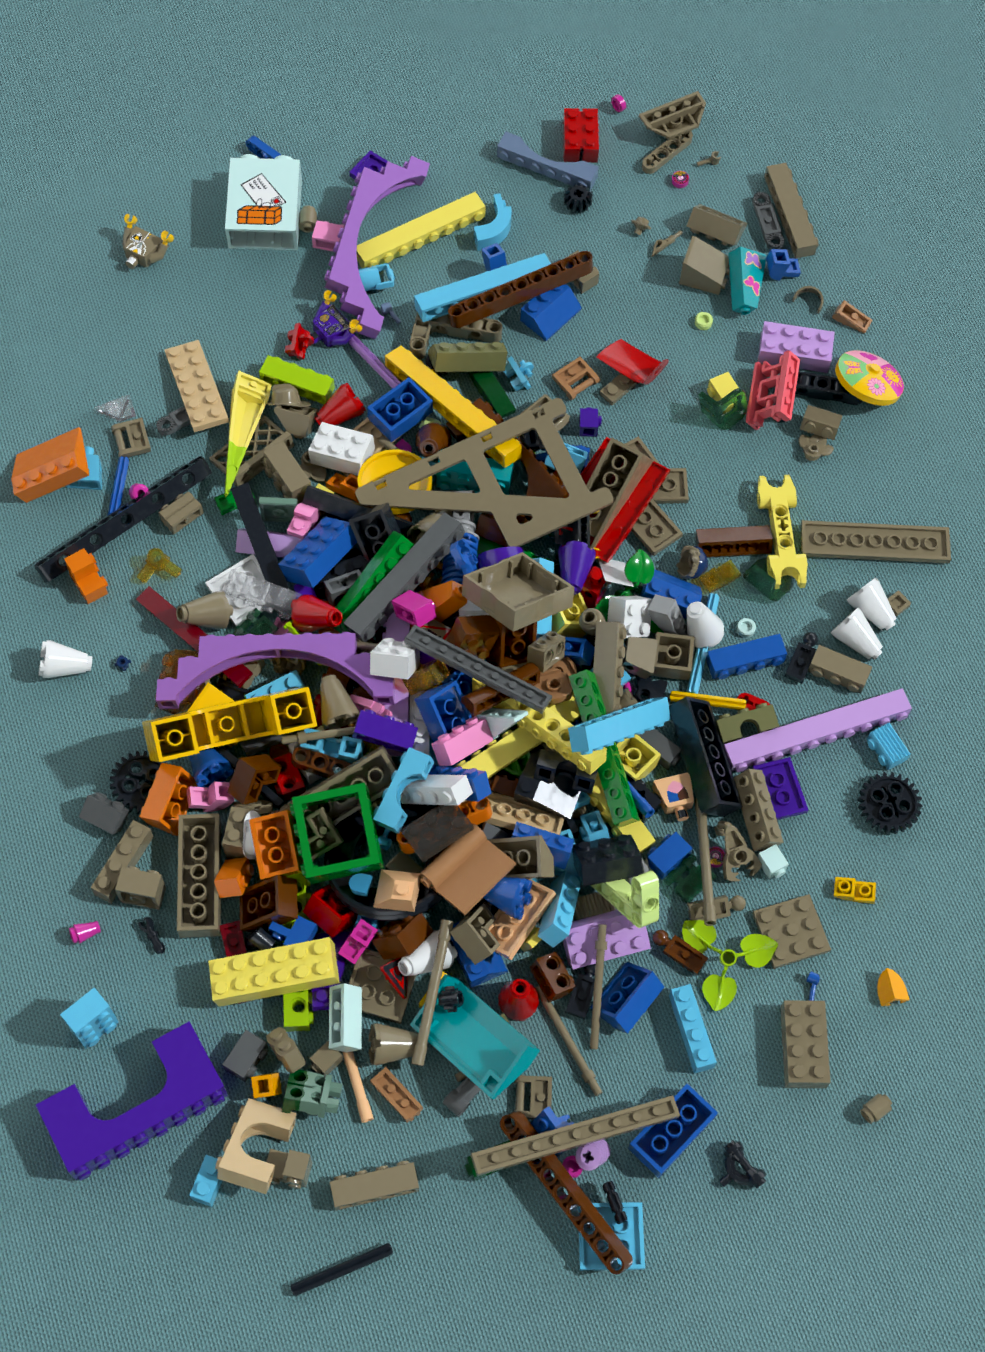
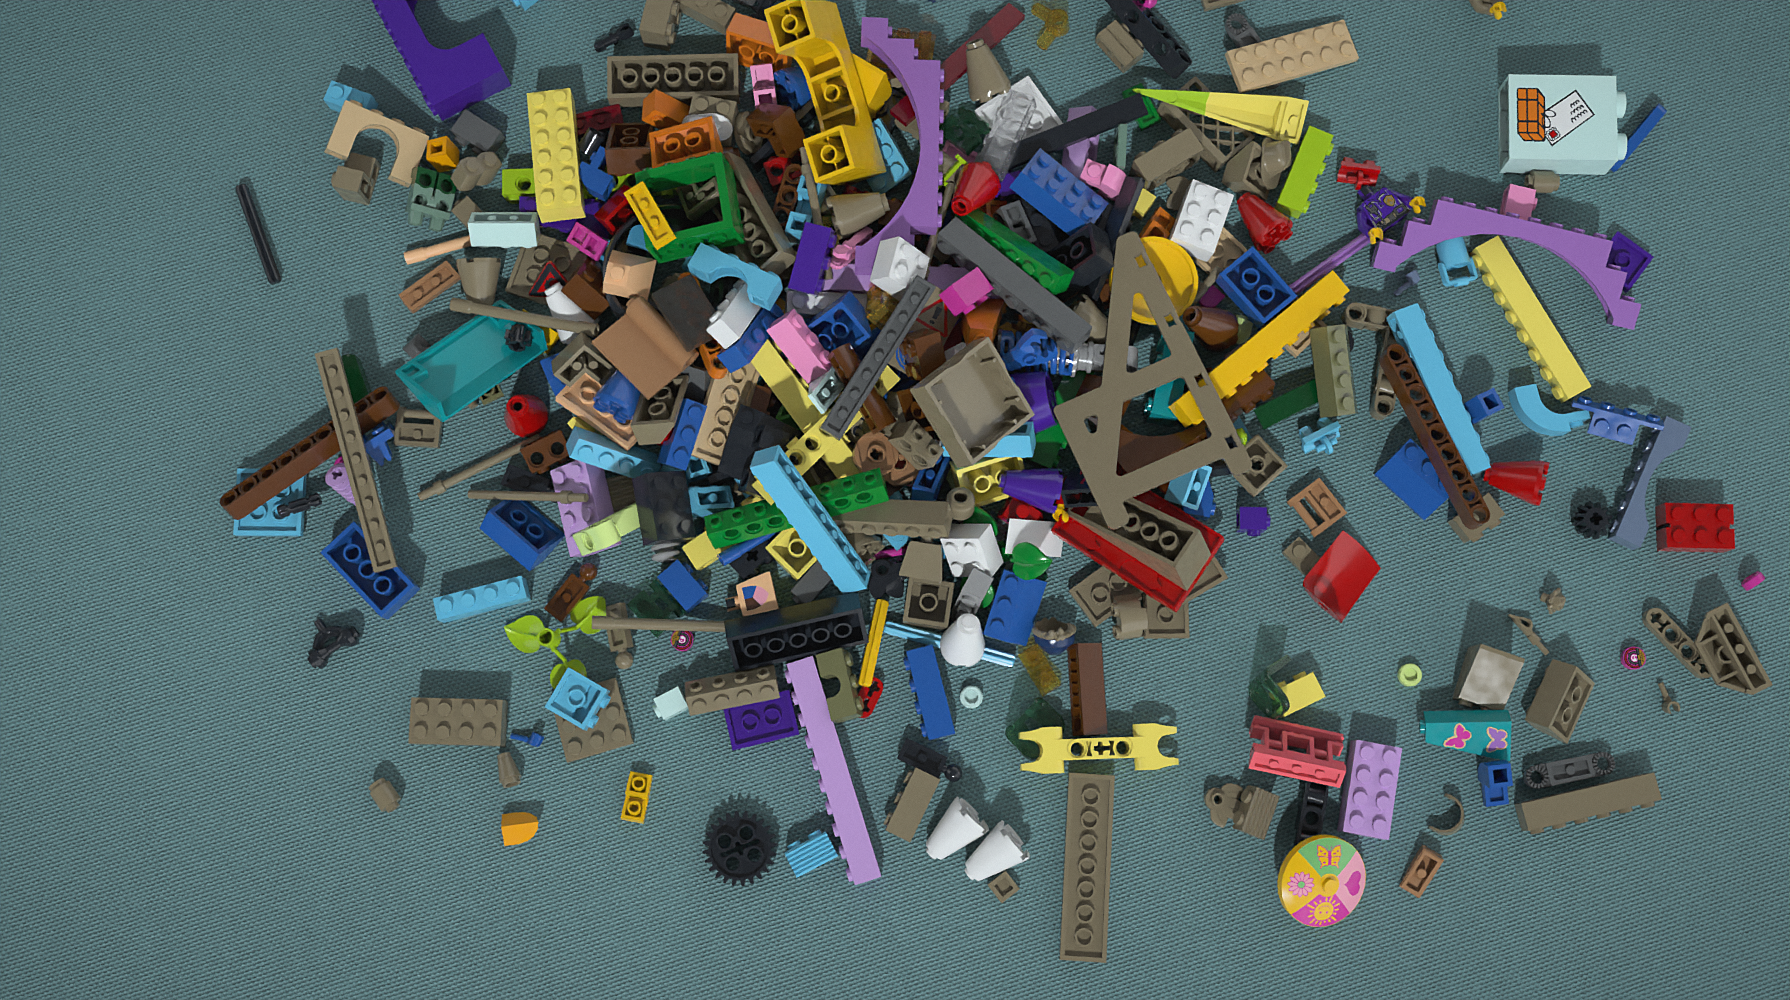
camera: 95 degrees right, 15 degrees up
(351, 856) = (649, 215): none -> yellow plate
(374, 1186) = (335, 264): dark tan brick -> none
(503, 177) = (1615, 422): none -> bracket
(550, 237) = (1519, 478): none -> red cone
(673, 506) = (1129, 616): none -> dark tan cylinder
(736, 851) = (681, 662): dark tan animal -> none
(778, 933) = (578, 699): none -> medium azure plate
(845, 999) = (508, 771): none -> dark tan cone

